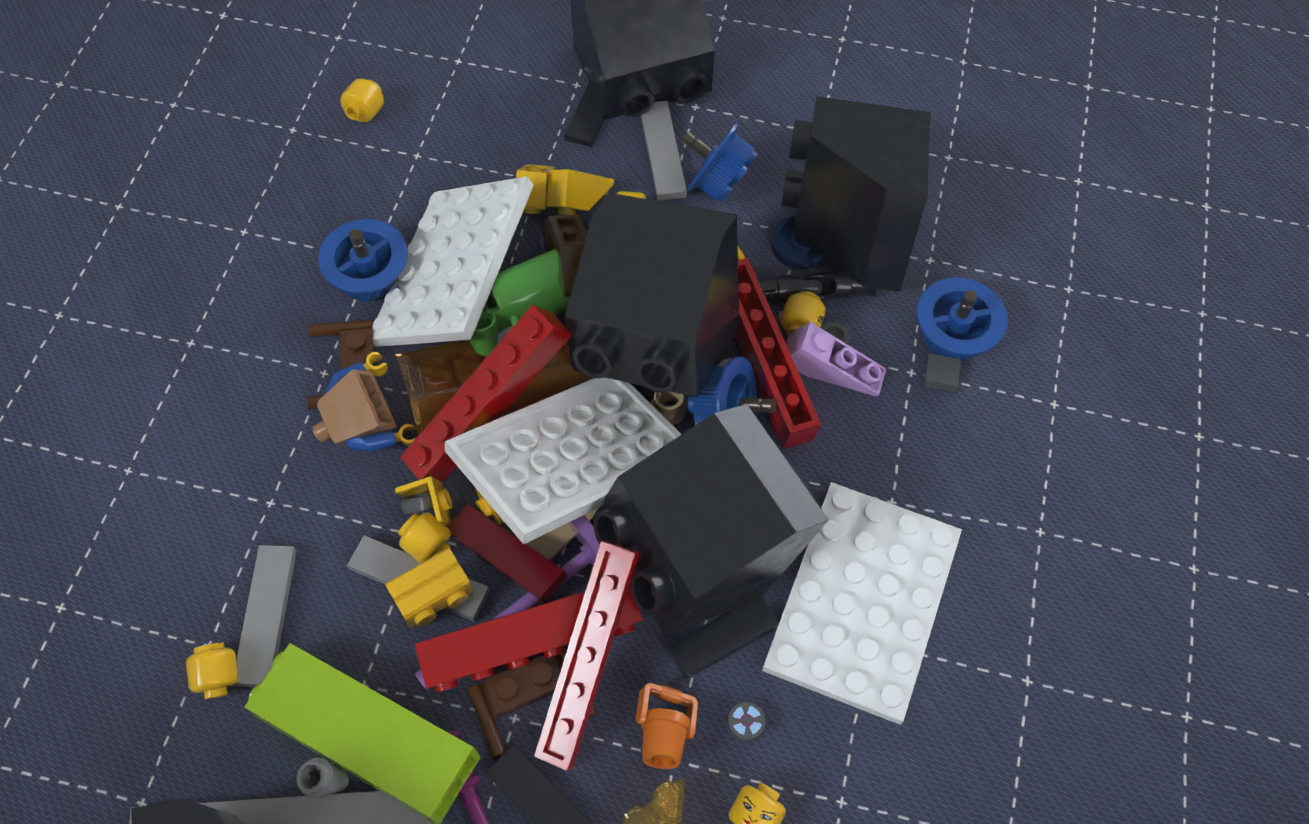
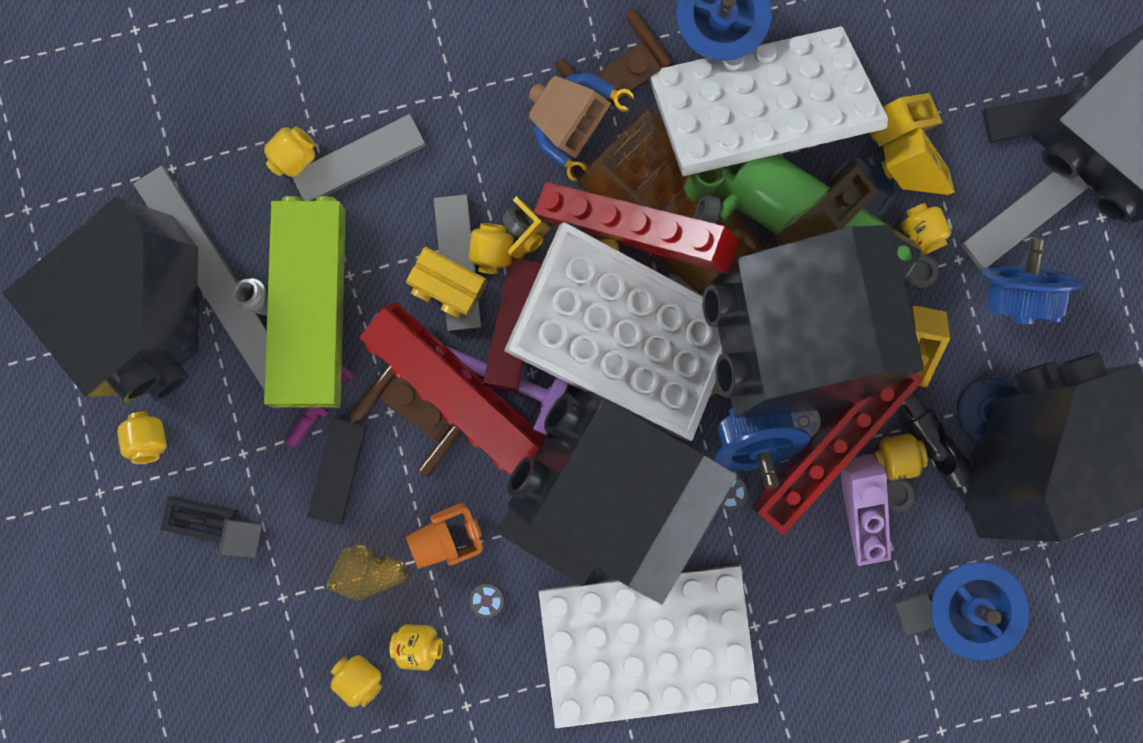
camera: 60 degrees right, 25 degrees up
(586, 655) = (459, 450): plate -> none

